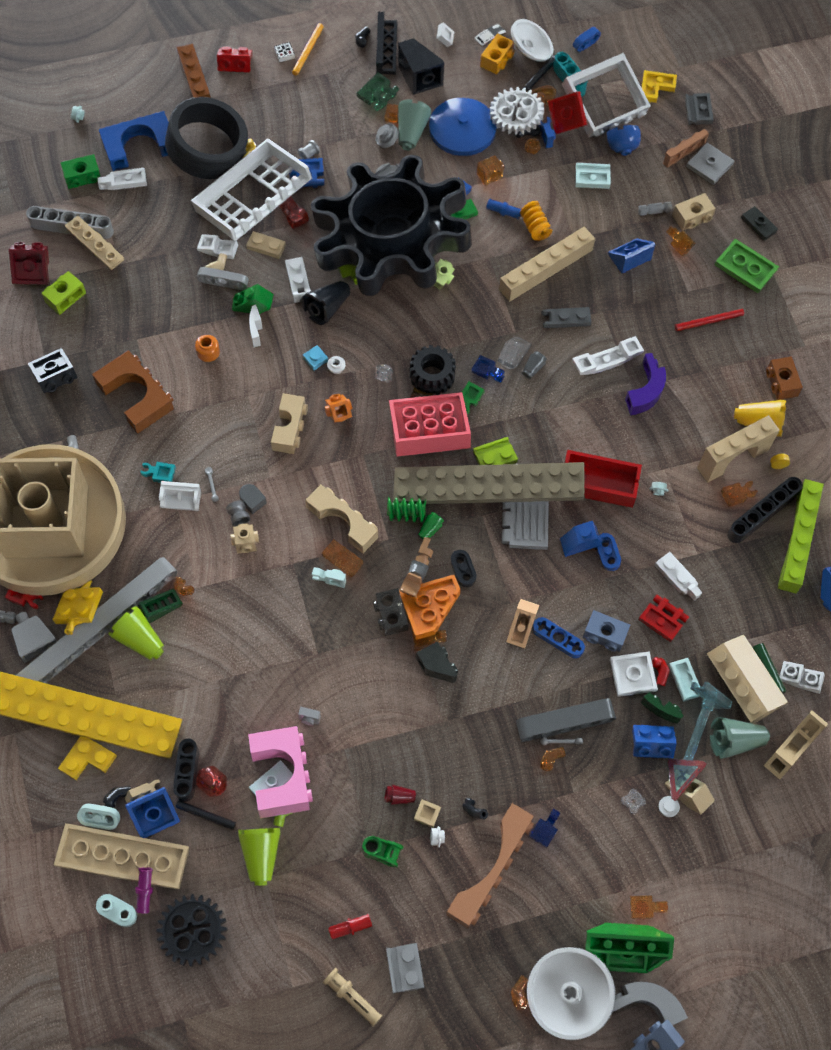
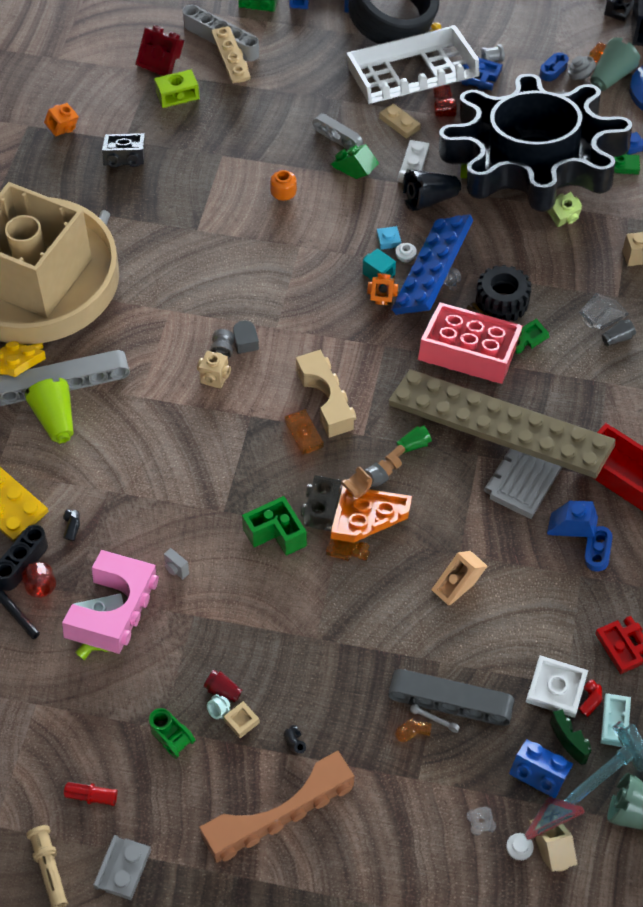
camera: 30 degrees right, 10 degrees down
(123, 179) = (294, 15): white hinge -> none
(129, 369) = (192, 175): dark orange arch -> none
(160, 472) = (169, 278): teal plate -> none
(162, 611) = (85, 389): dark green slope -> none
(180, 496) = (175, 305): white hinge -> none
(183, 590) = (125, 388): clear orange arm -> none
(209, 471) = (218, 297): light grey hinge -> none
(209, 720) = (73, 520): none -> black arm
(214, 246) = (349, 105): white slope -> none
(219, 264) = (343, 119): tan arm -> none
(255, 324) = (343, 184): white slope -> none
(259, 852) = (42, 669): lime cone -> none
(286, 438) = (314, 296): tan arch -> none
(322, 387) = (377, 263): none -> teal brick
(332, 577) = (281, 443): light aqua plate -> none
(365, 142) = (557, 63): none -> blue beam
(365, 368) = (432, 265): none -> blue plate
(366, 645) = (278, 522): none -> green brick
(374, 88) = (592, 24): clear green plate -> none
(405, 812) = (218, 706): none -> light aqua plate
(406, 509) = (396, 413): green piece -> none
(436, 664) = (339, 574): pearl dark grey slope -> none
(437, 836) = (237, 748): white plate -> none
(463, 569) = (426, 497): black plate -> none
(486, 367) = (564, 314): clear blue plate -> none
(496, 453) = (529, 398): lime plate -> none
(544, 830) = (361, 802): clear blue plate -> none
(559, 645) = (492, 621): blue beam -> none
(617, 629) = (545, 614): sand blue brick -> none

